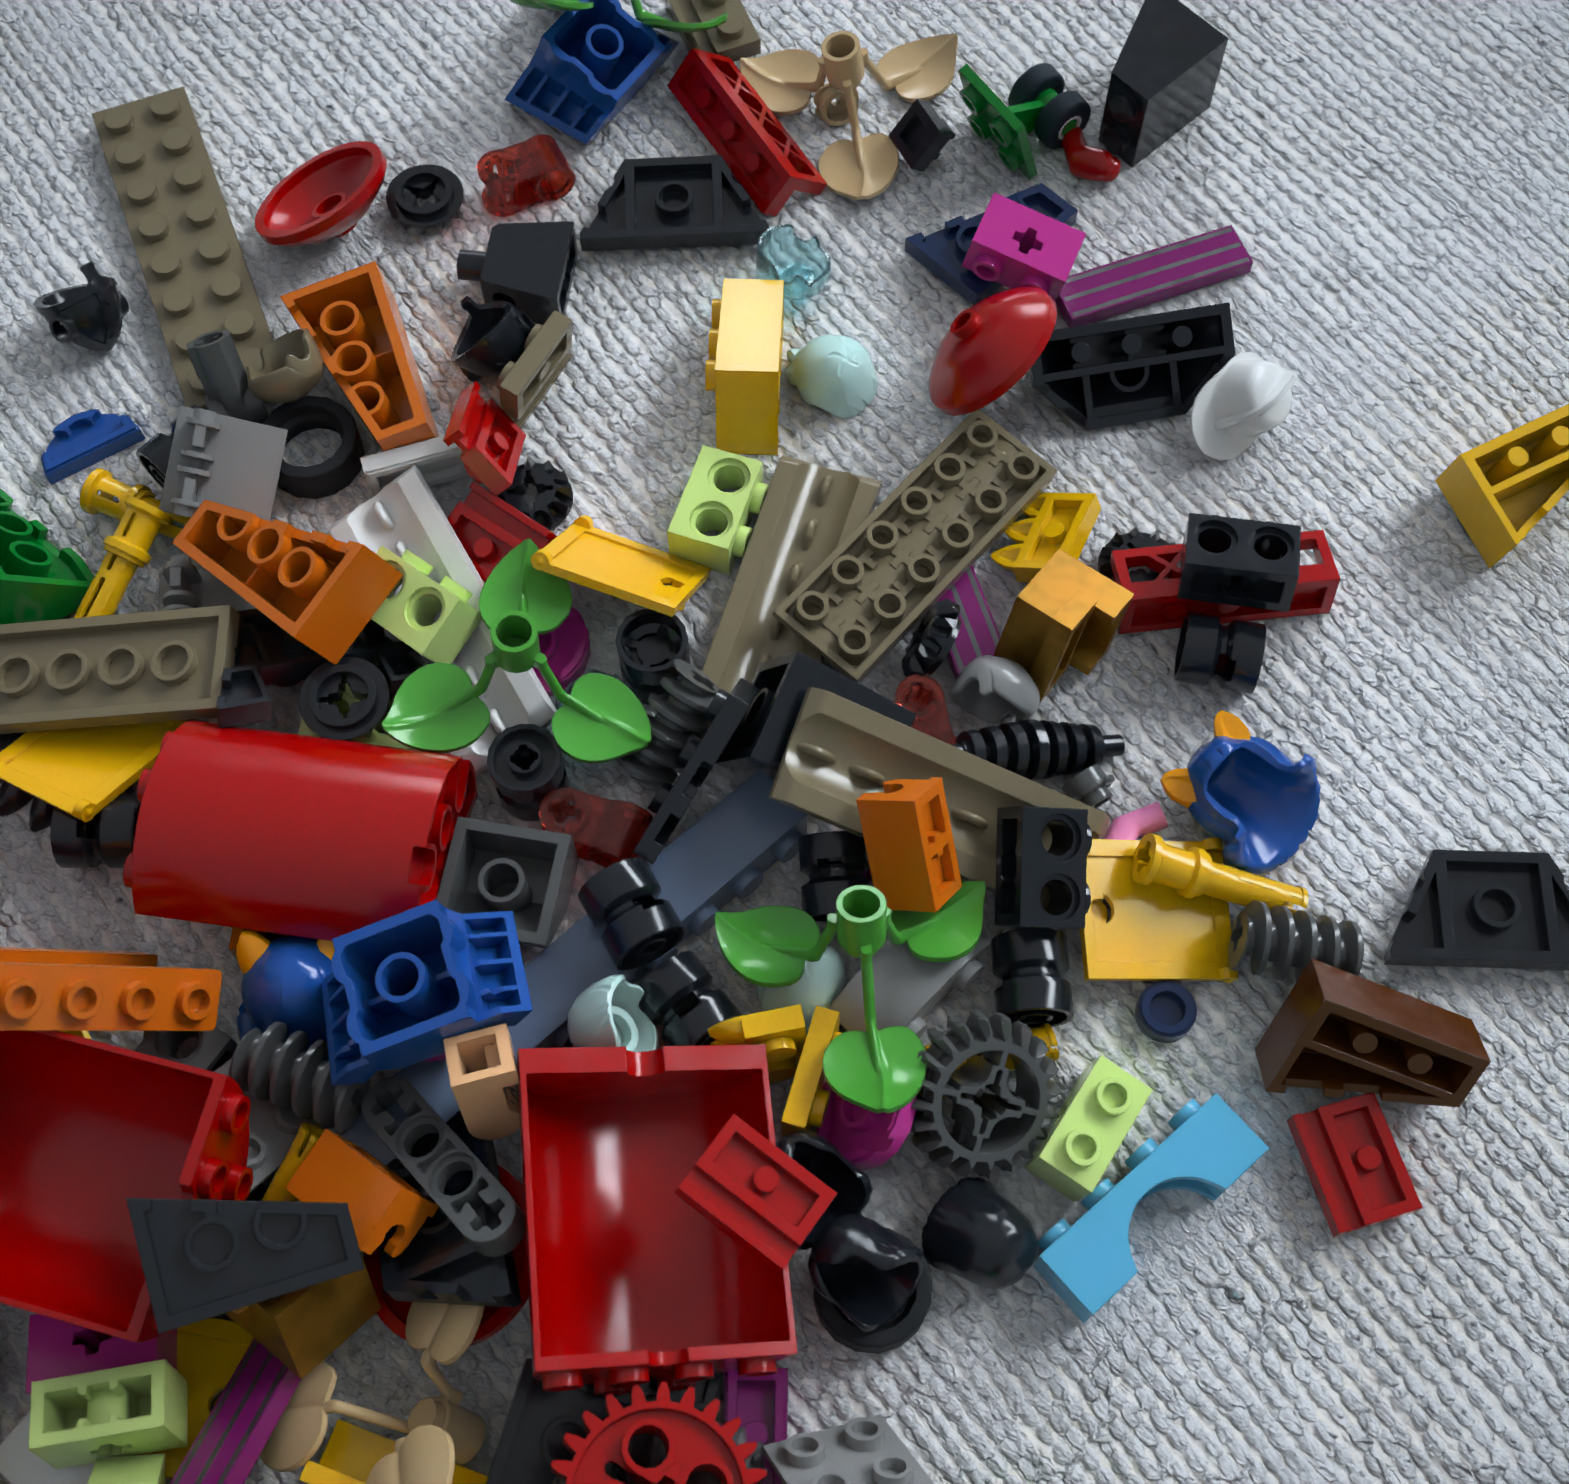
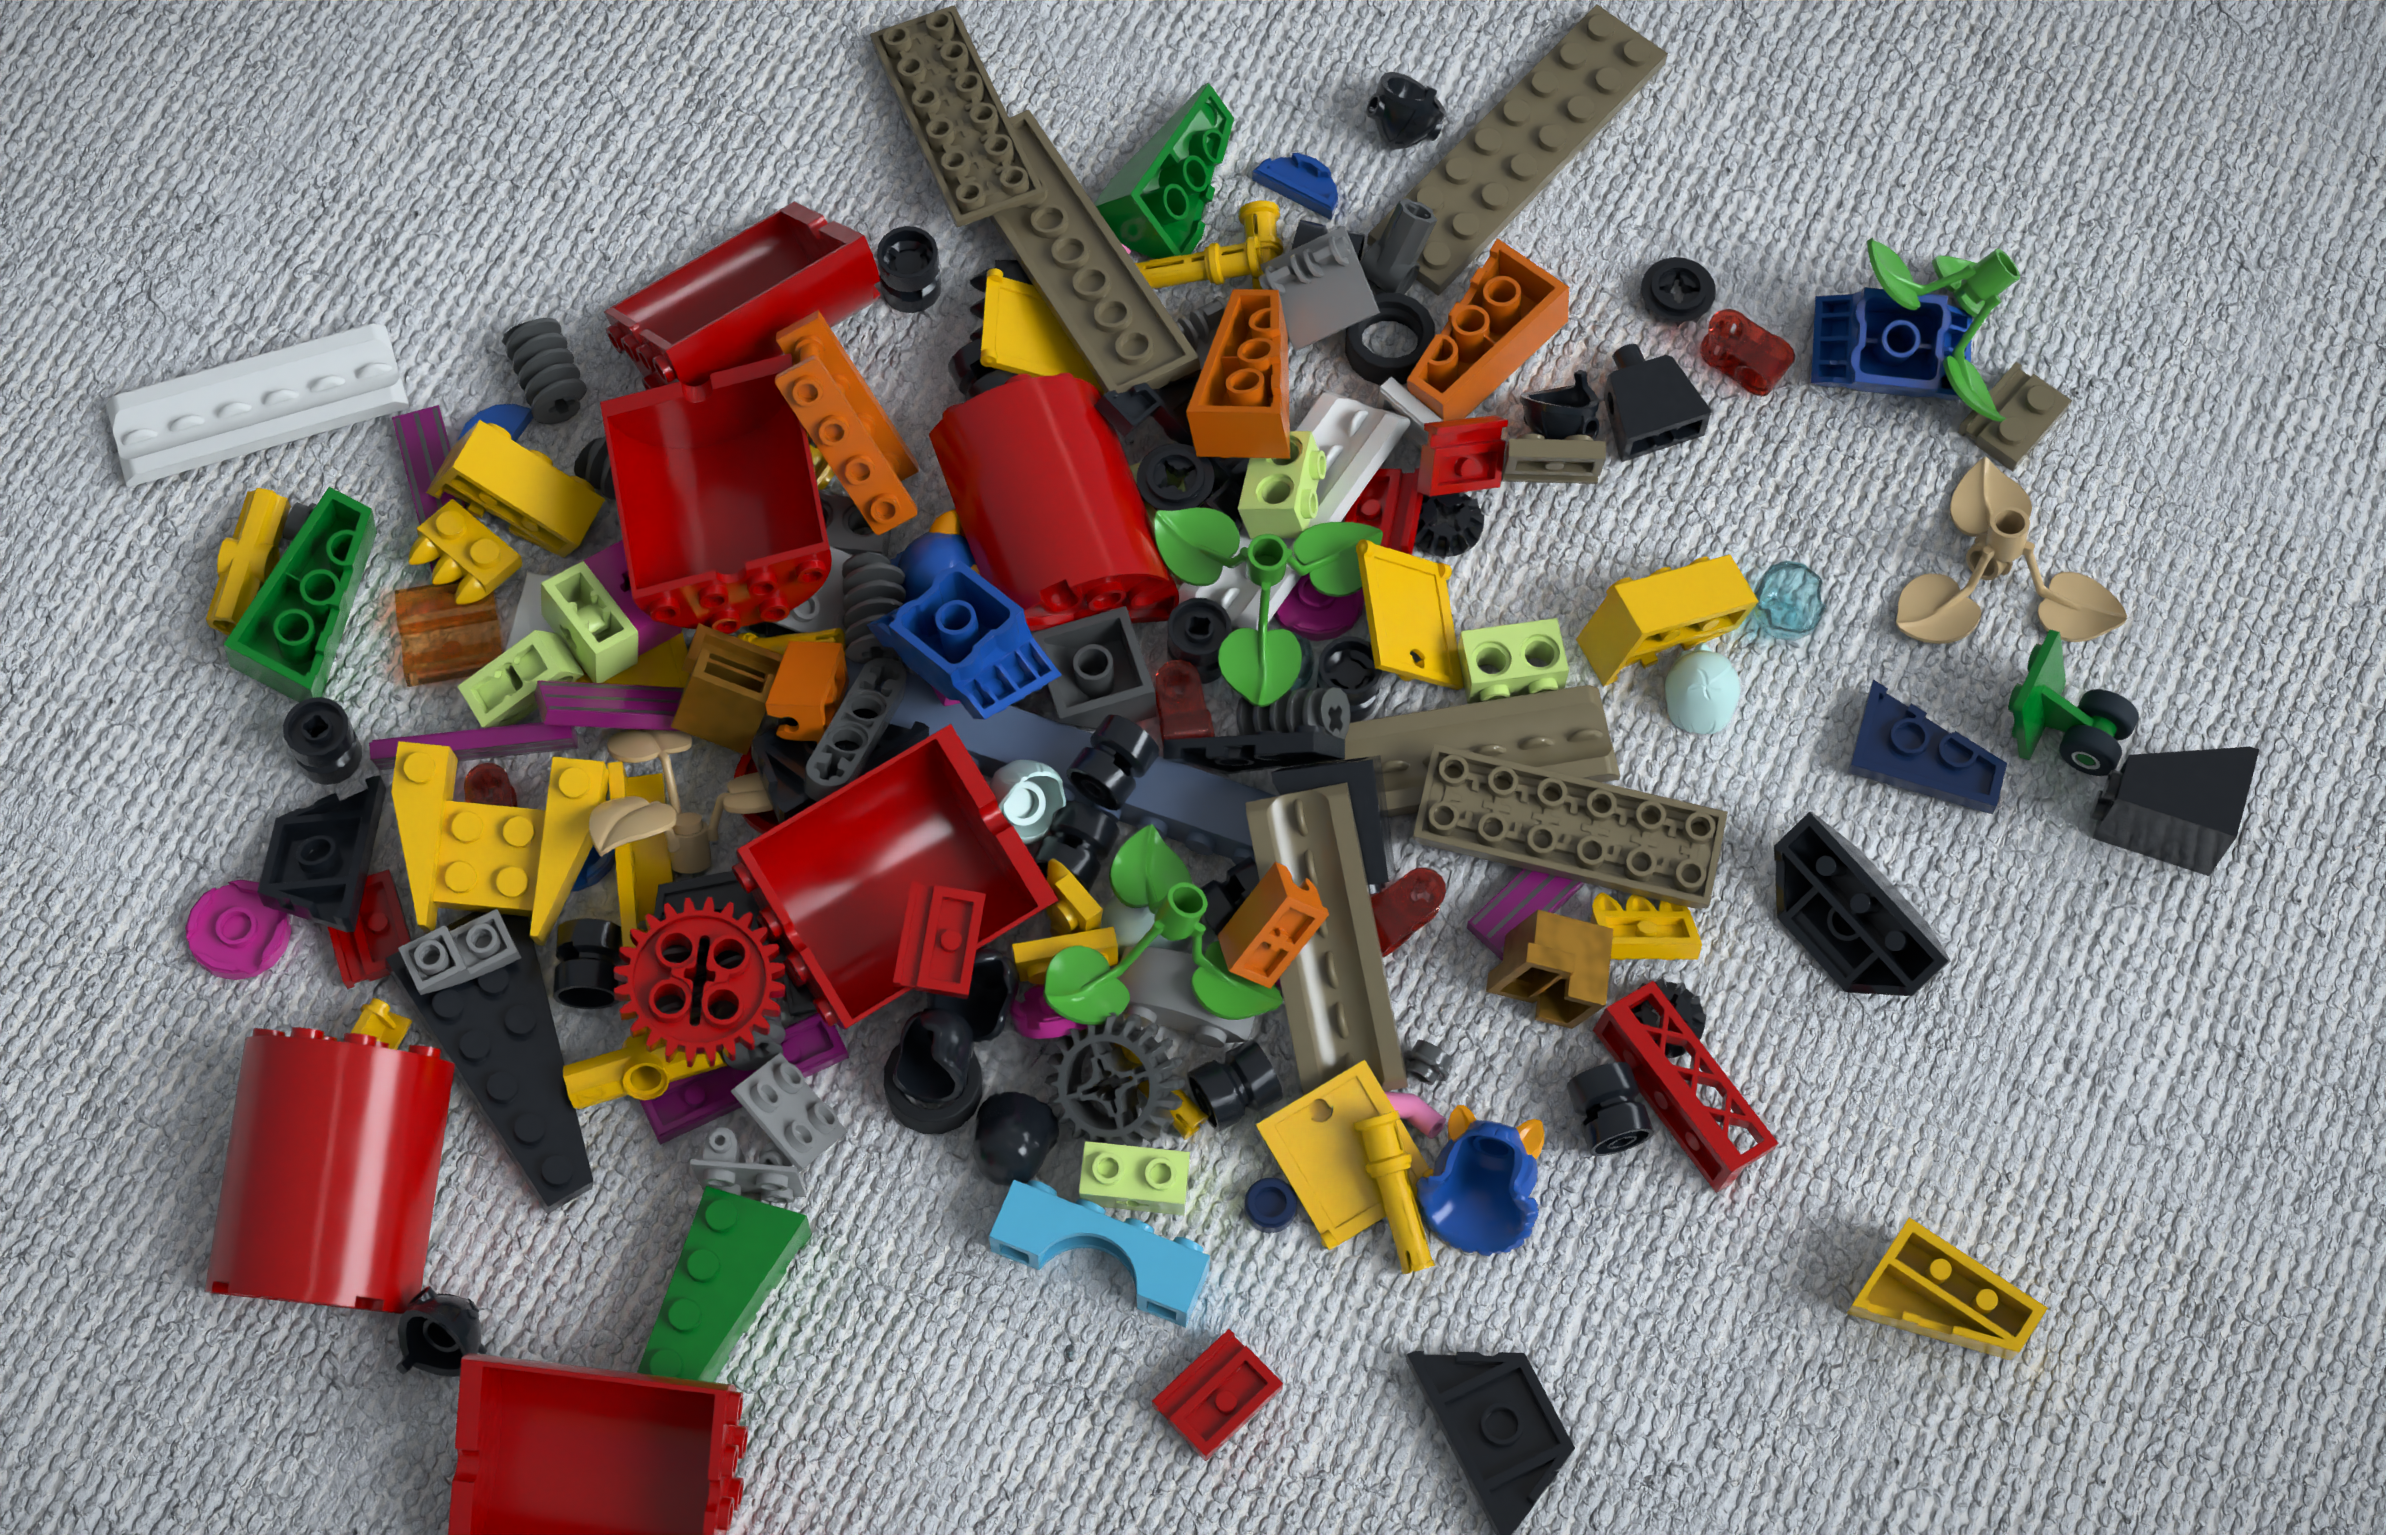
camera: 60 degrees right, 0 degrees up
(233, 1253) = (719, 625): black wing -> none
(289, 368) = (1433, 284): dark tan hair -> none
(323, 196) = (1619, 214): red dish -> none
(485, 1081) = (921, 718): light nougat leg -> none
(673, 206) = (1791, 482): black wing -> none
(743, 130) = (1905, 487): red fence -> none
(921, 135) = (1993, 641): black tile -> none
(932, 639) = (1482, 876): black gear -> none
(990, 349) = (1786, 790): red dish -> none
(995, 687) = (1471, 947): light grey hair -> none
(1022, 247) = (1918, 750): dark pink brick -> none
(1026, 867) = (1312, 1029): black brick -> none
(1041, 747) = (1429, 997): black piece -> none
(1088, 161) = (2065, 793): red arm -> none
(1153, 276) = (1974, 903): magenta tile -> none
(1239, 562) = (1676, 1077): black brick -> none
(1240, 405) = (1870, 1025): white piece -> none
(1293, 941) = (1371, 1271): dark grey piece -> none
(1368, 1038) = (1320, 1358): reddish brown wedge -> none

